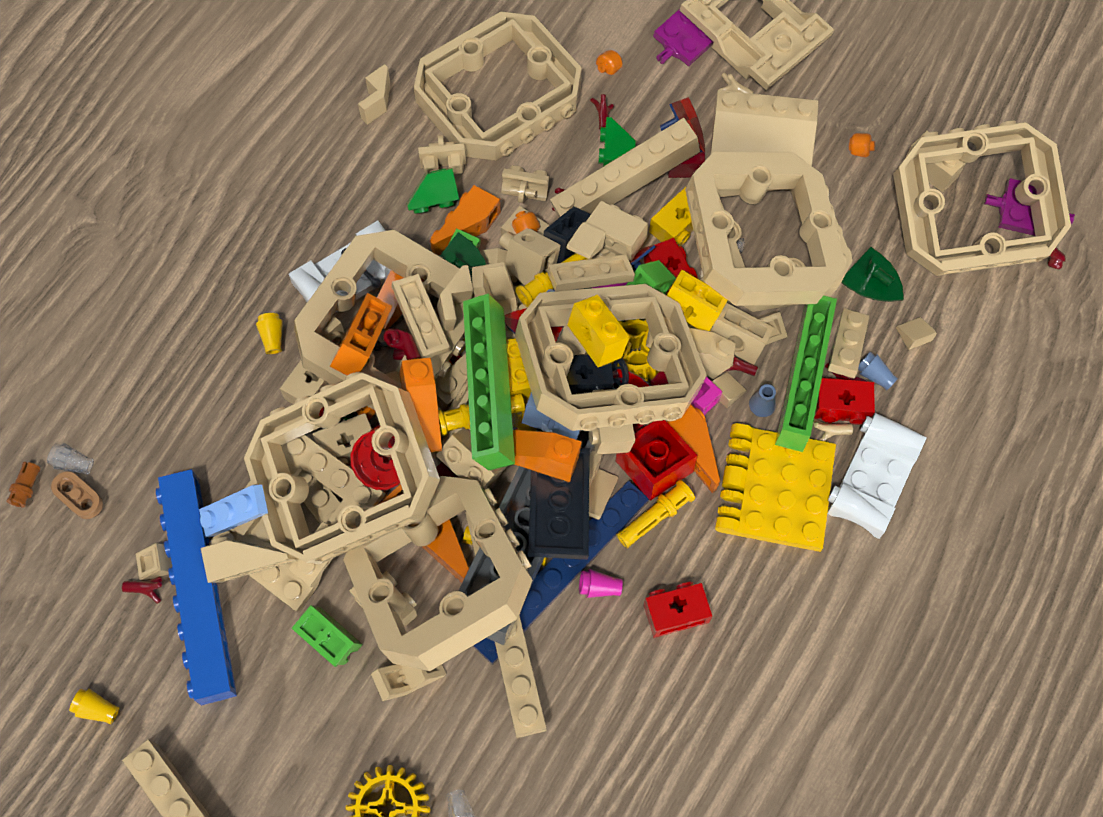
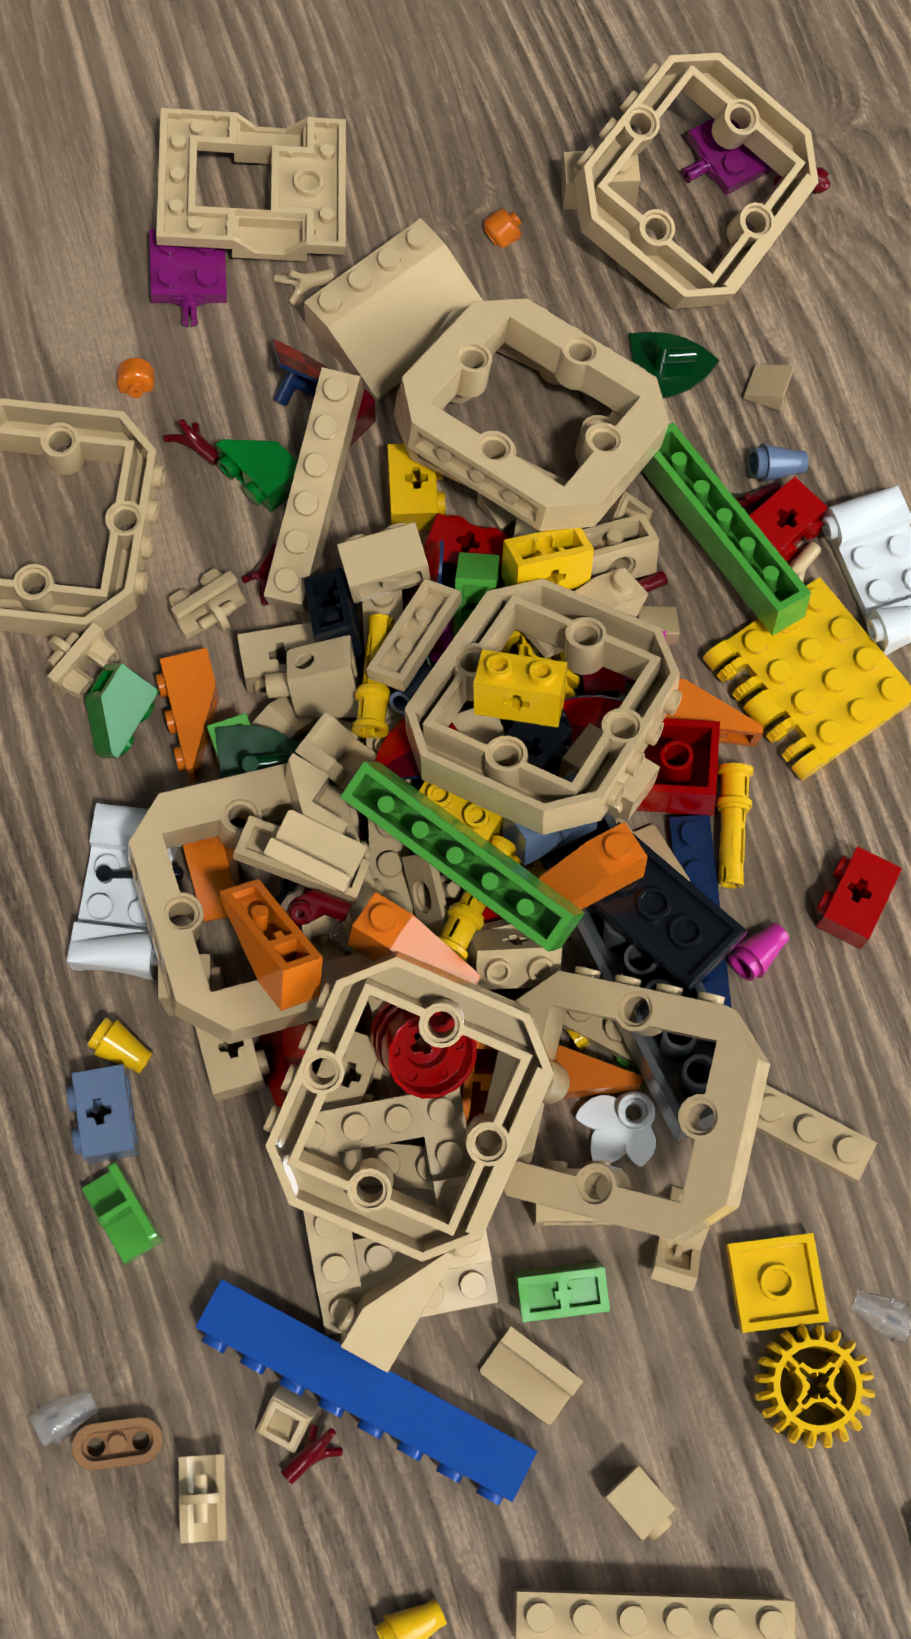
camera: 50 degrees left, 5 degrees up
(22, 488) = (46, 1504): dark orange pin -> none
(78, 553) = (202, 1498): none -> tan hips
(190, 403) = (122, 1214): none -> bright green panel
(231, 354) = (118, 1134): none -> sand blue brick
(233, 511) = (333, 1271): light blue plate -> none
(248, 769) = (640, 1504): none -> tan brick
(272, 659) = (530, 1376): none -> tan panel
(424, 315) = (316, 851): none -> tan panel
(427, 743) = (777, 1283): none -> yellow plate
(440, 584) = (615, 1132): none -> white plate
(525, 221) = (268, 648): orange piece -> none
(587, 240) = (372, 602): tan slope -> none
(763, 401) = (708, 602): sand blue cone -> none
(848, 343) = (726, 458): tan plate -> none

